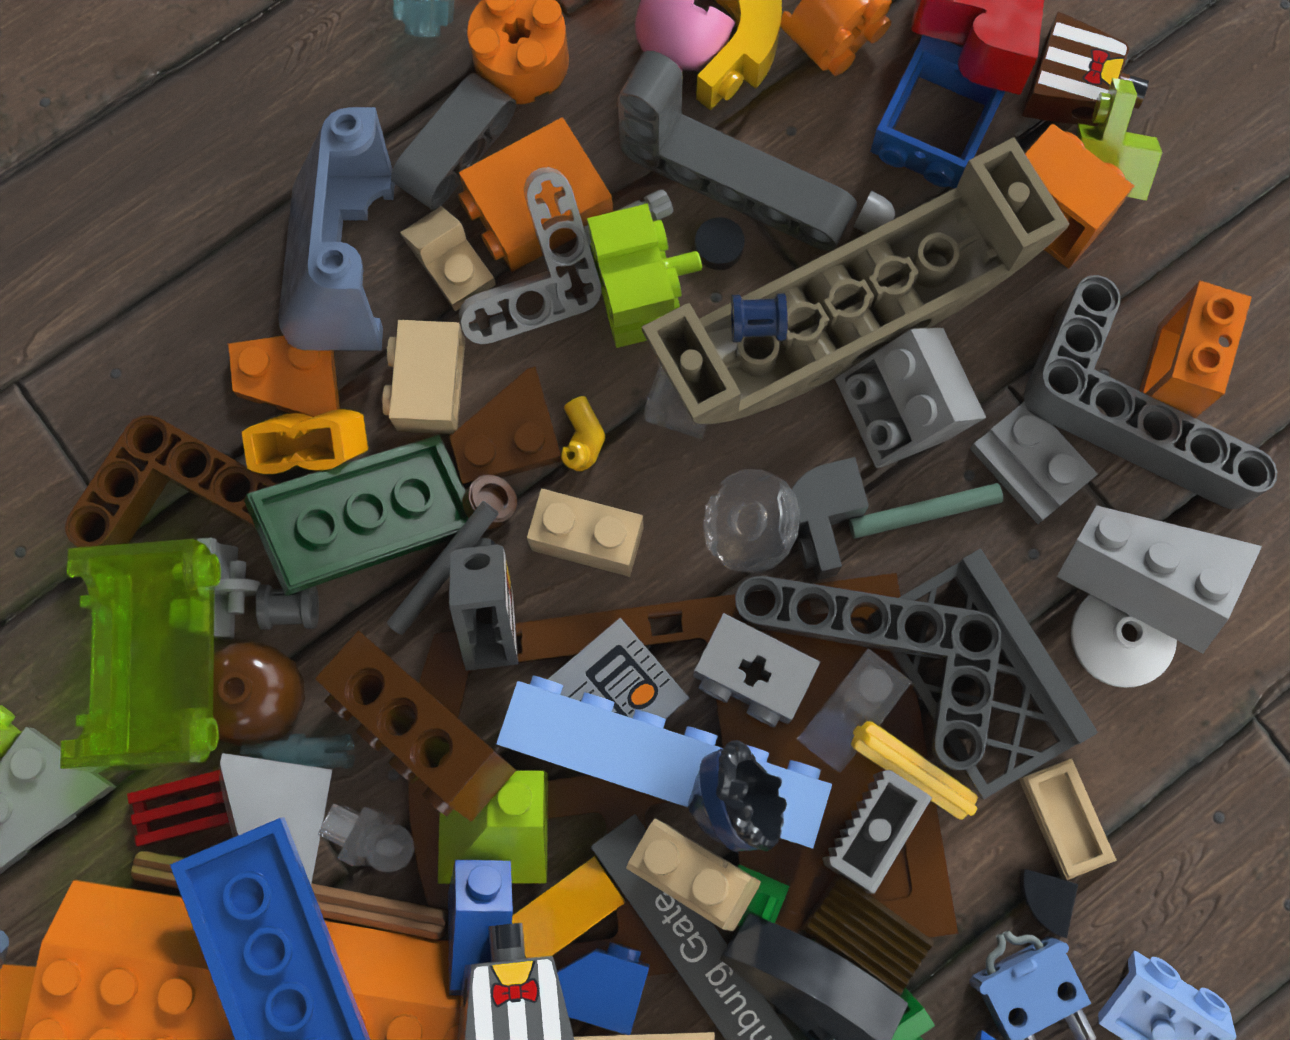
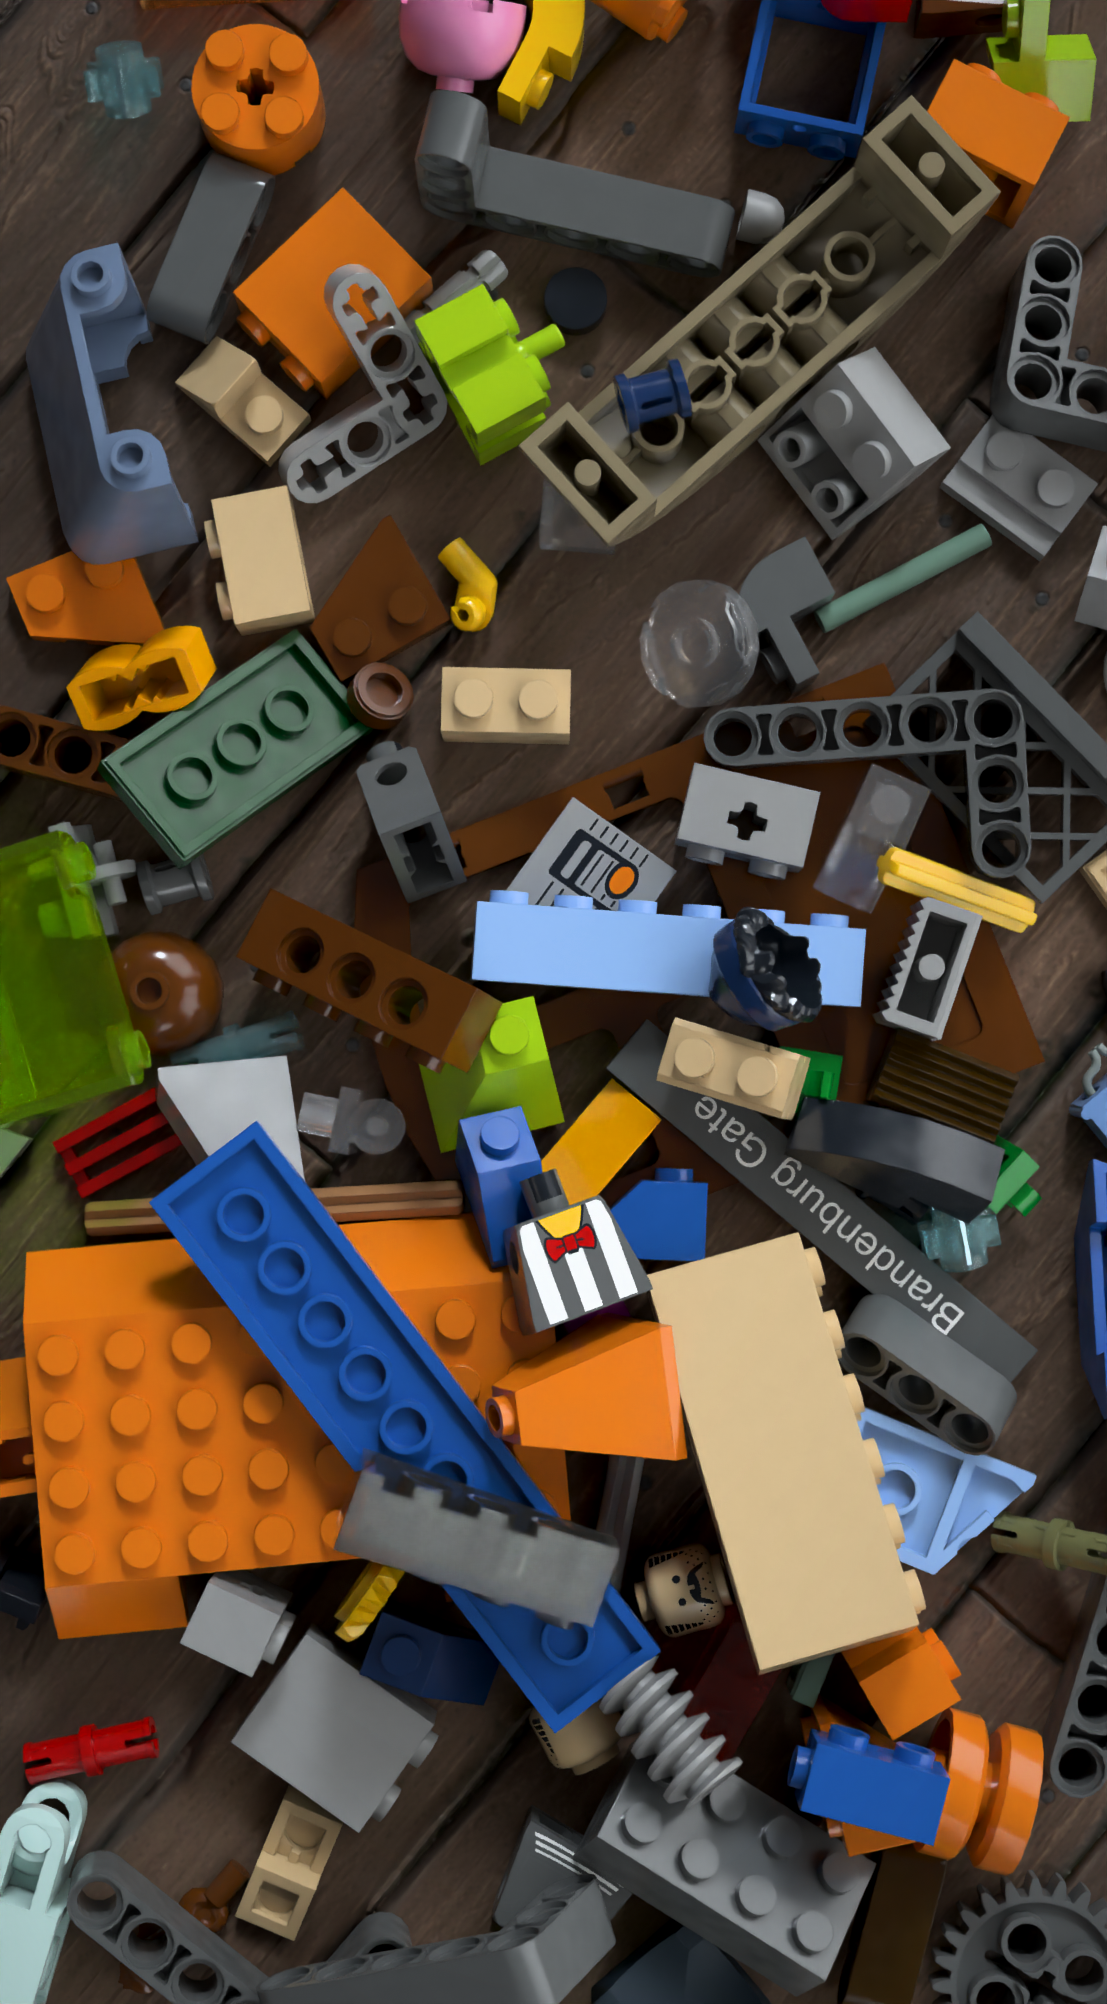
camera: 15 degrees left, 10 degrees up
(440, 569) = (346, 790): dark grey bar -> none

